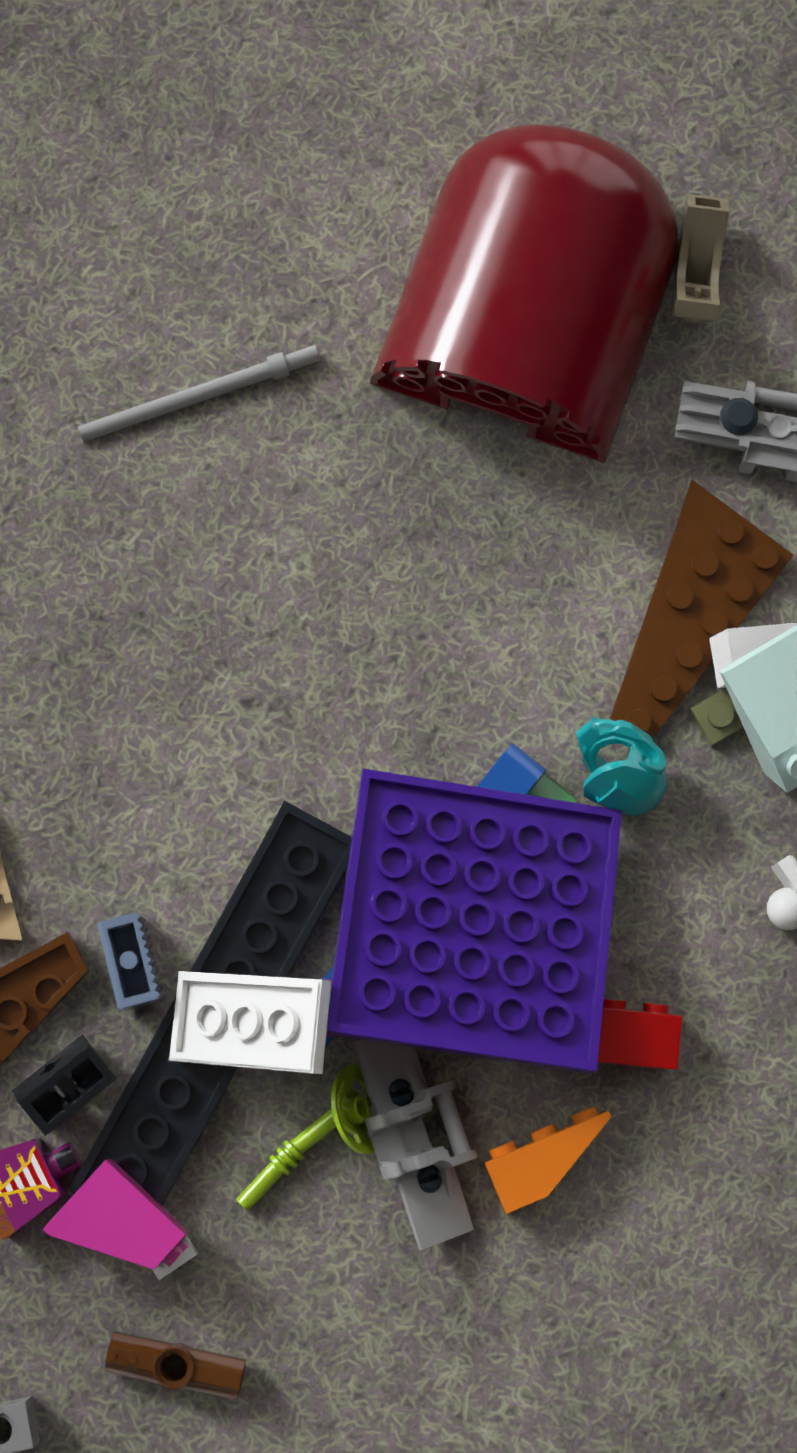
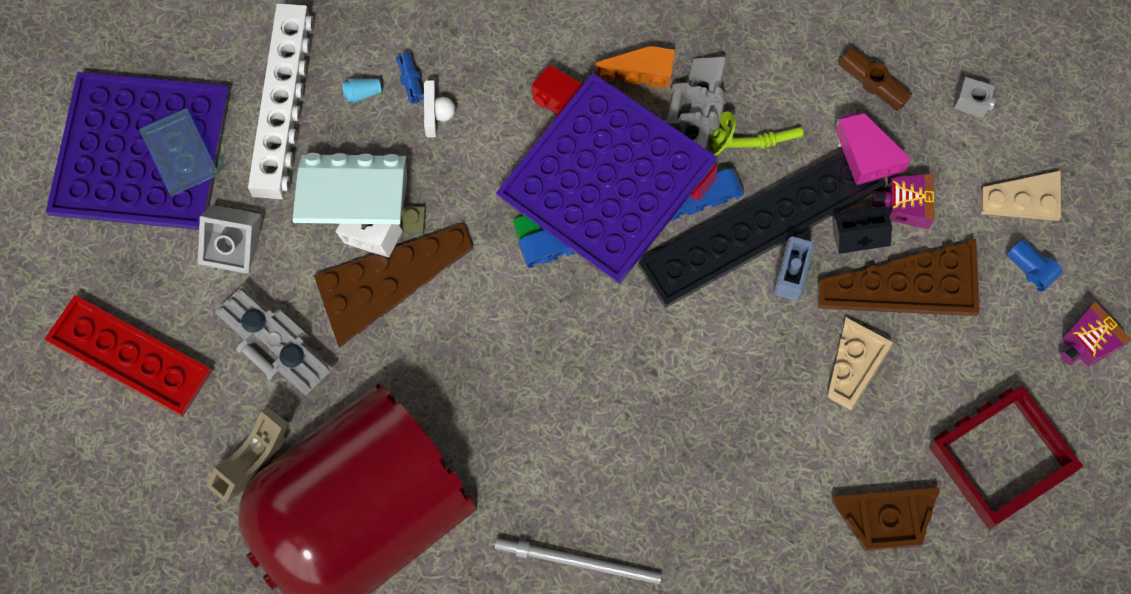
camera: 150 degrees left, 10 degrees down
(250, 1021) = (751, 193): white tile -> none
(628, 784) = (478, 213): teal helmet -> none

